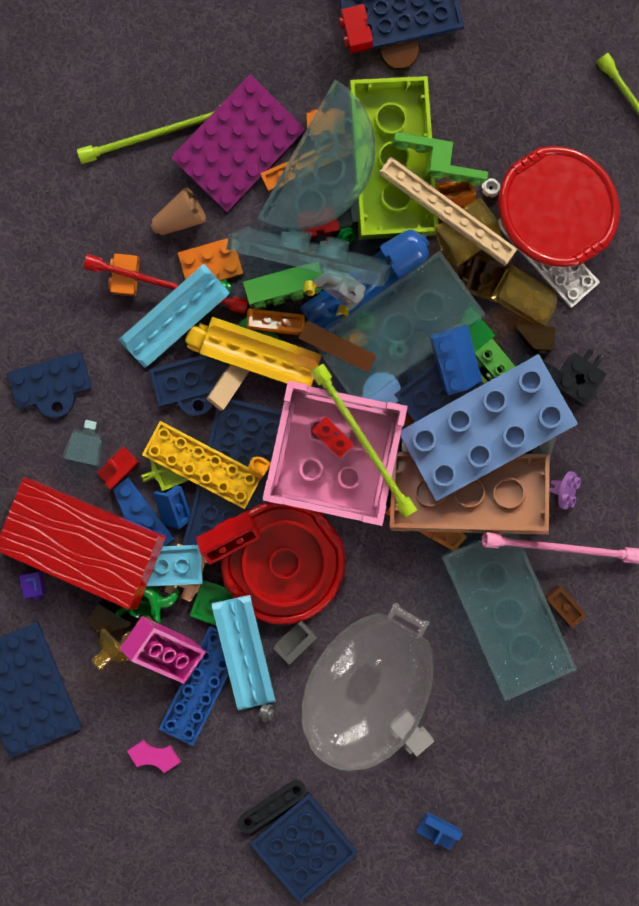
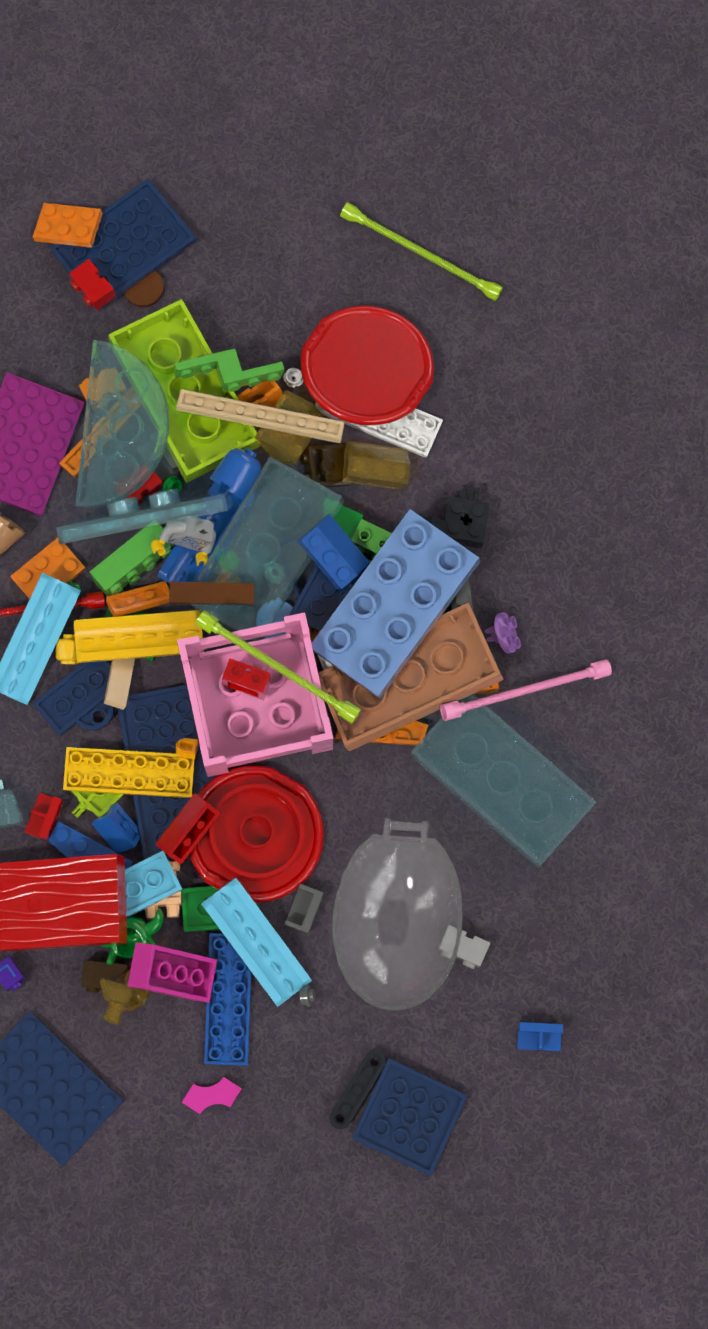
camera: 25 degrees left, 10 degrees down
(537, 337) = (405, 498): dark brown slope -> none
(565, 606) = (558, 747): reddish brown panel -> none

